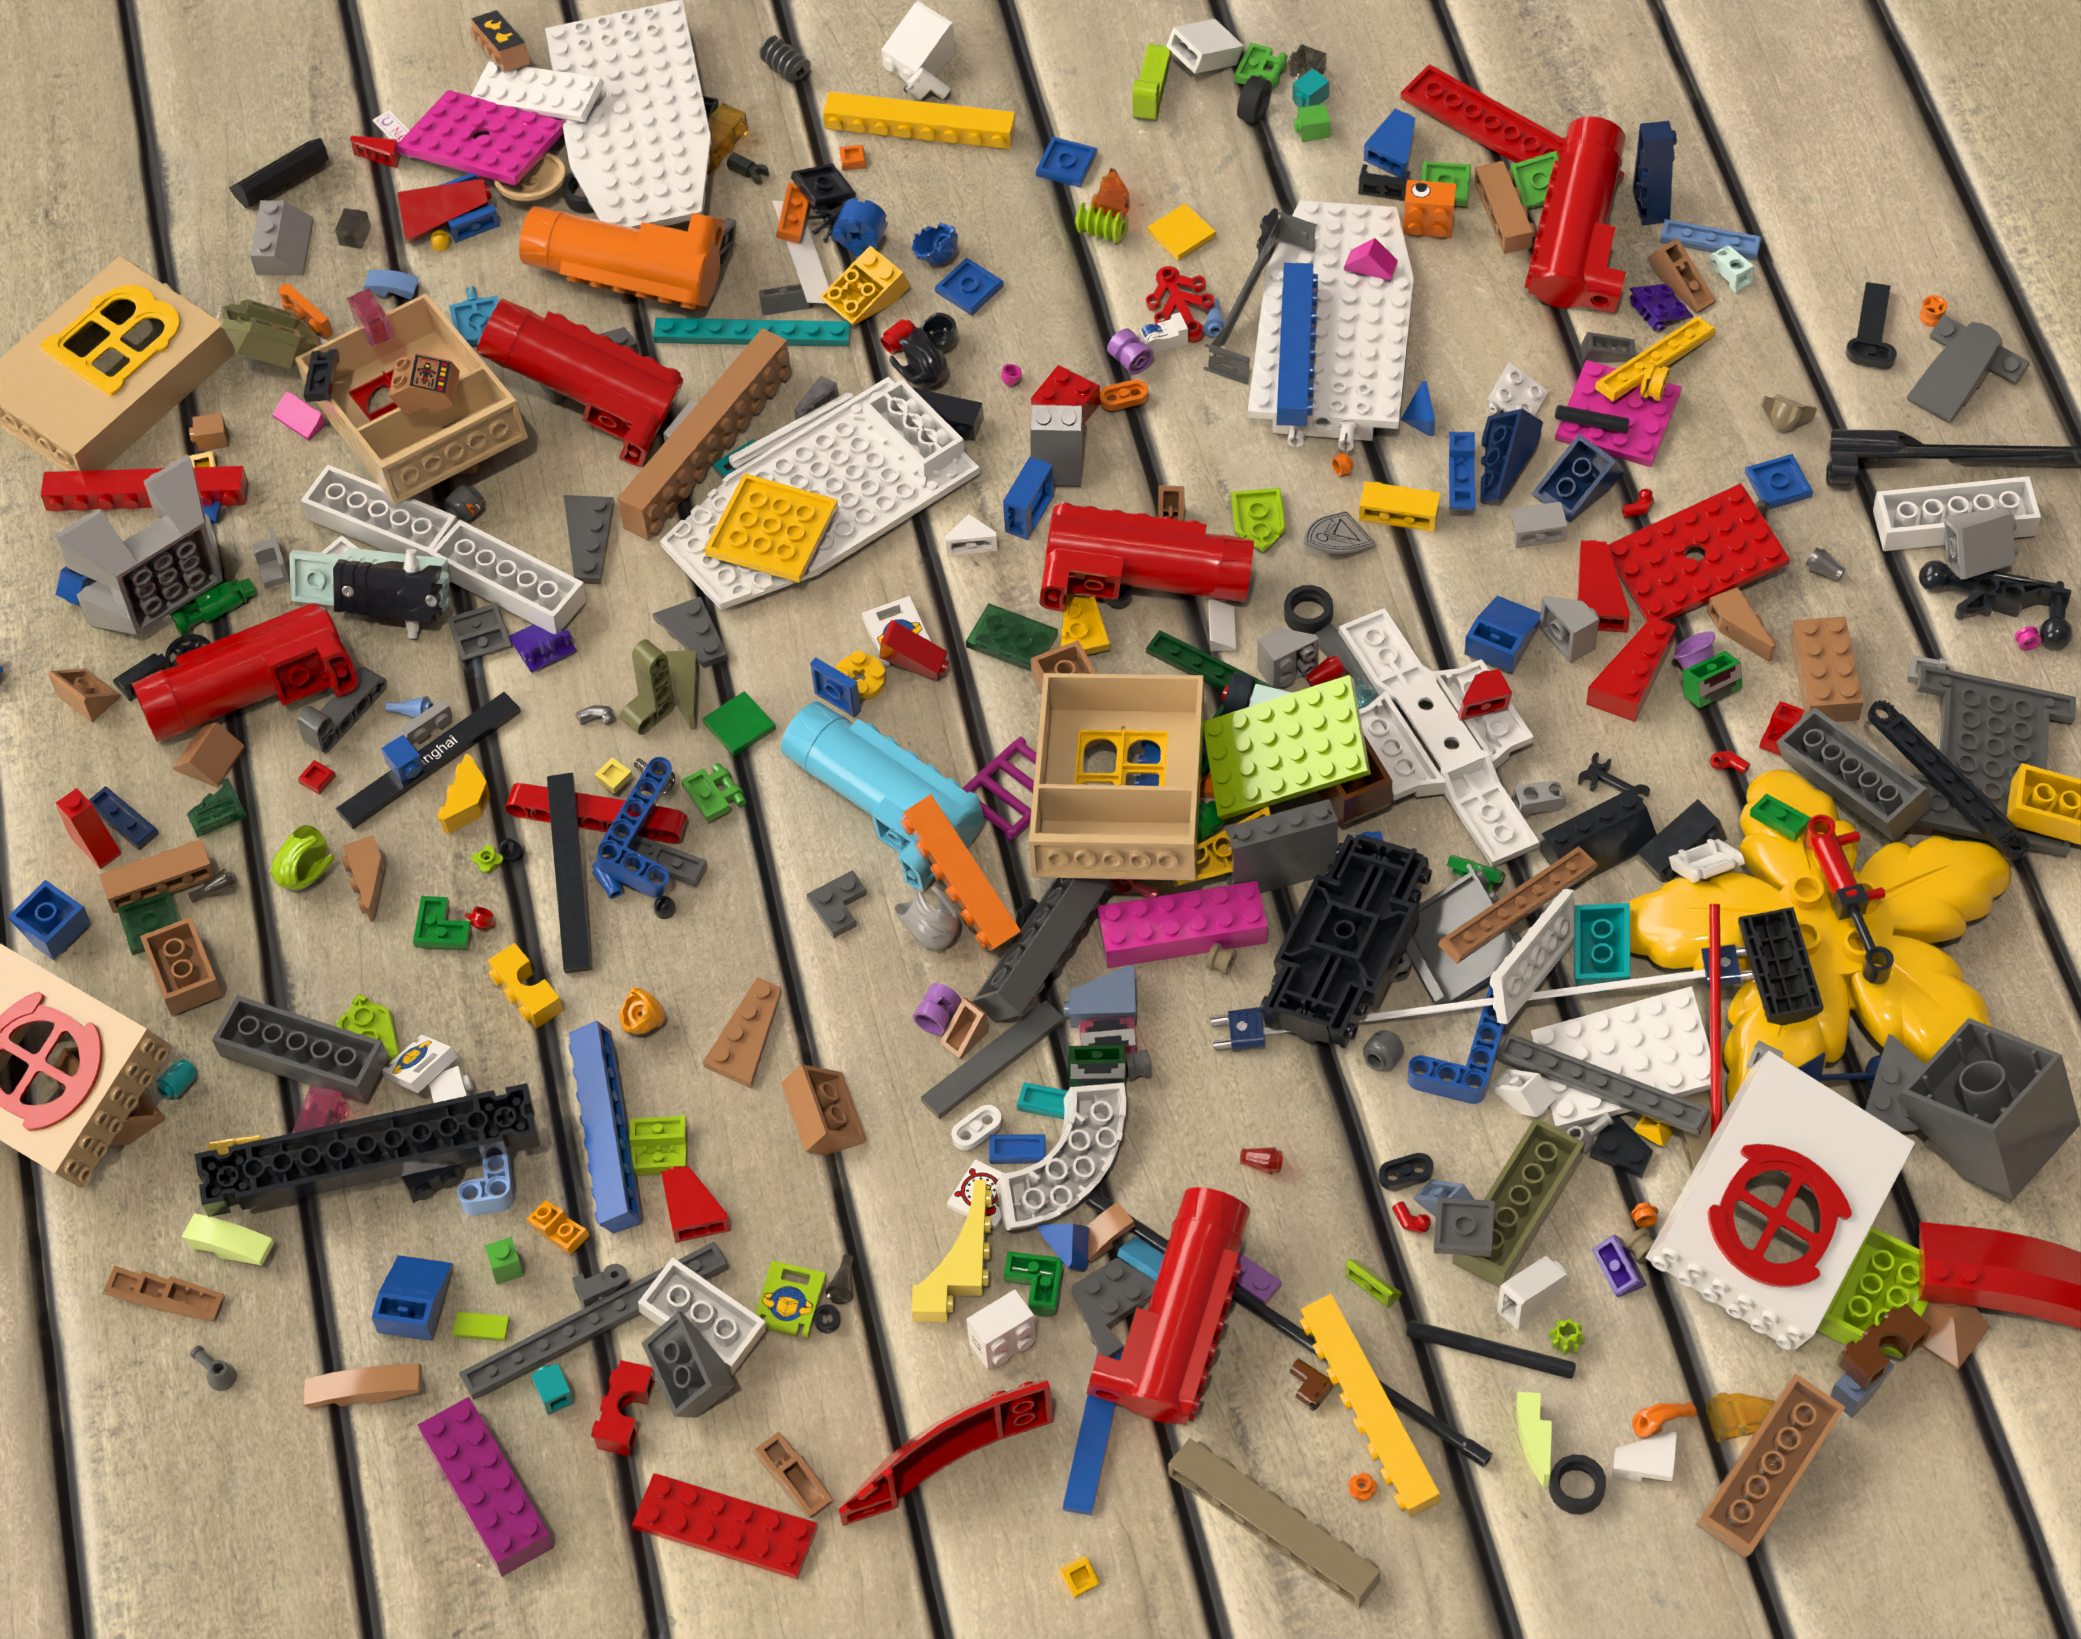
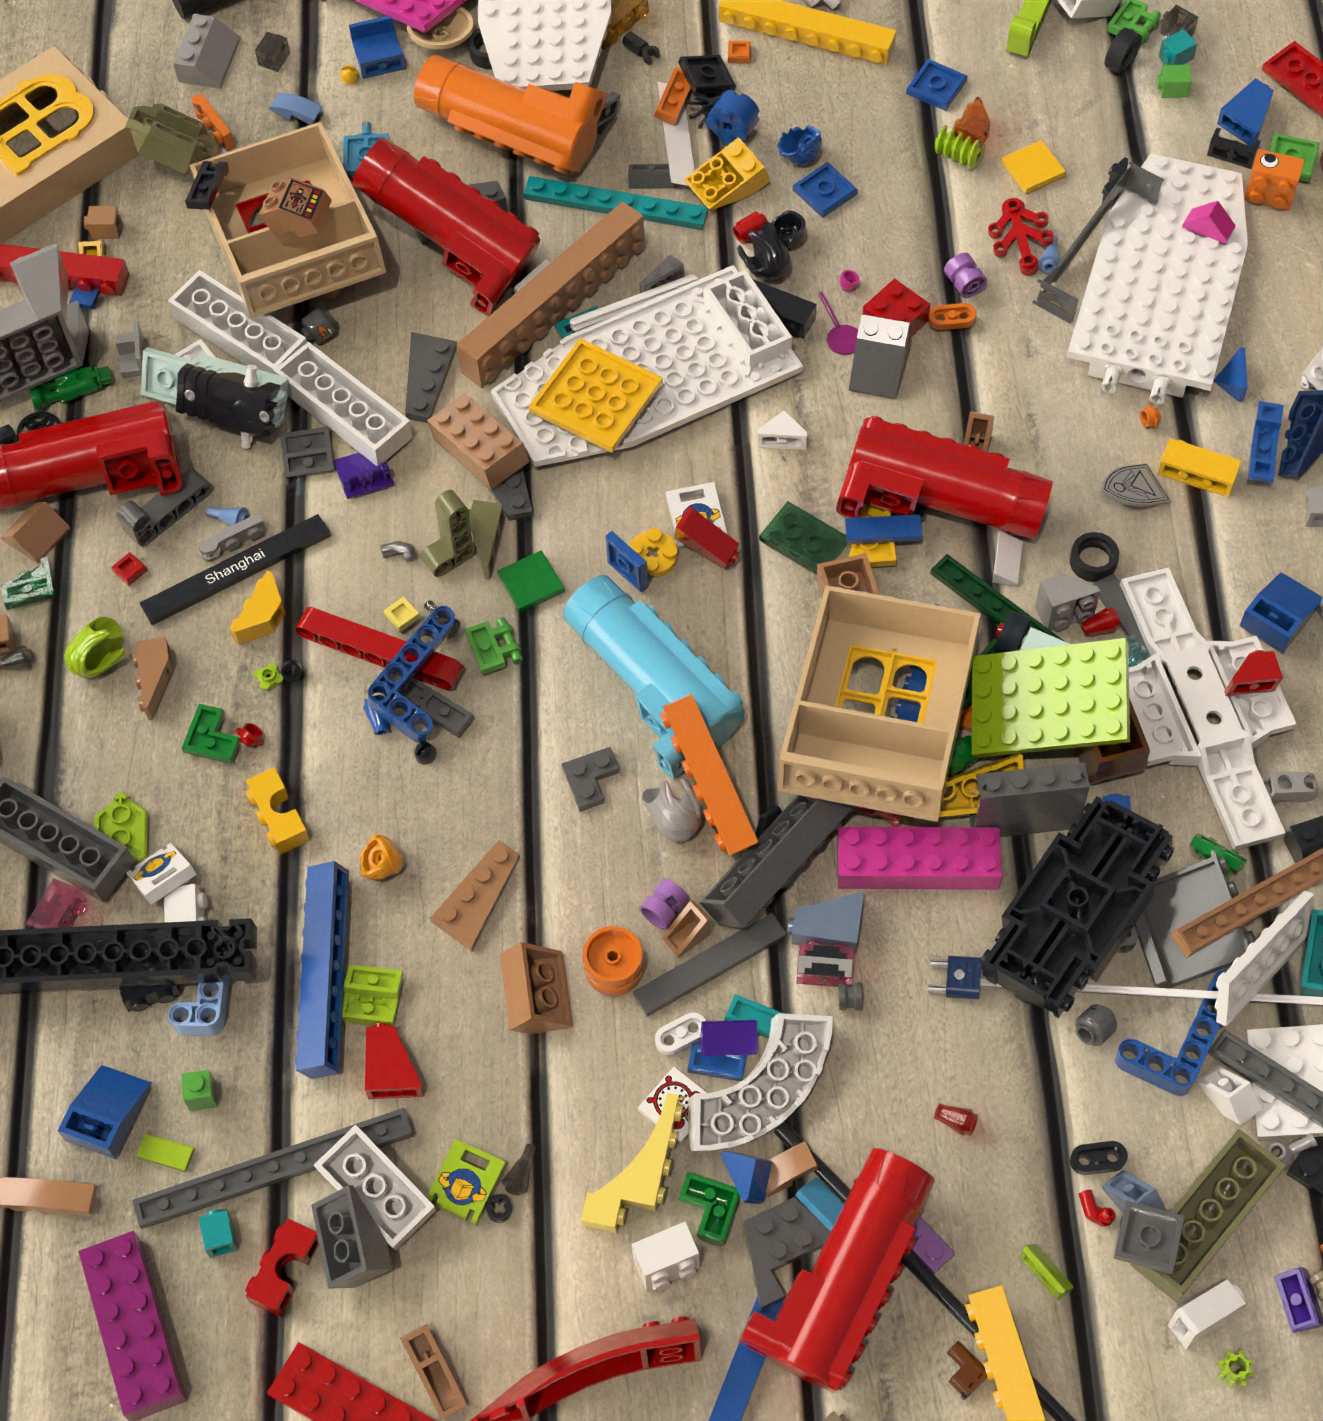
camera: 10 degrees right, 5 degrees up
(299, 416) = (187, 221): slope -> none
(370, 317) = (263, 137): clear pink brick -> none
(402, 758) = (209, 565): blue brick -> none
(432, 207) = (344, 42): red slope -> none
(557, 1228) = (259, 1063): light orange slope -> none
(569, 873) = (340, 705): black tile -> none
(600, 1285) = (286, 1134): dark grey leg -> none
(657, 592) = (478, 441): none -> medium nougat brick
(896, 1069) = (613, 960): none -> orange wheel
(983, 778) = (751, 674): magenta bar -> none
(1013, 434) = (842, 337): none -> magenta piece
(1024, 1121) = (728, 1037): none -> dark purple slope
(1028, 498) = (843, 404): blue window -> none
(1091, 615) = (883, 529): none -> blue tile
(1096, 1065) = (809, 992): brick -> none
(1165, 334) = (1001, 263): white leg -> none
(1221, 958) = (950, 899): dark tan wheel -> none
(1258, 516) = (1061, 455): lime tile -> none
(1295, 344) = (1124, 294): blue brick -> none
(1491, 1349) = (1156, 1367): black axle -> none

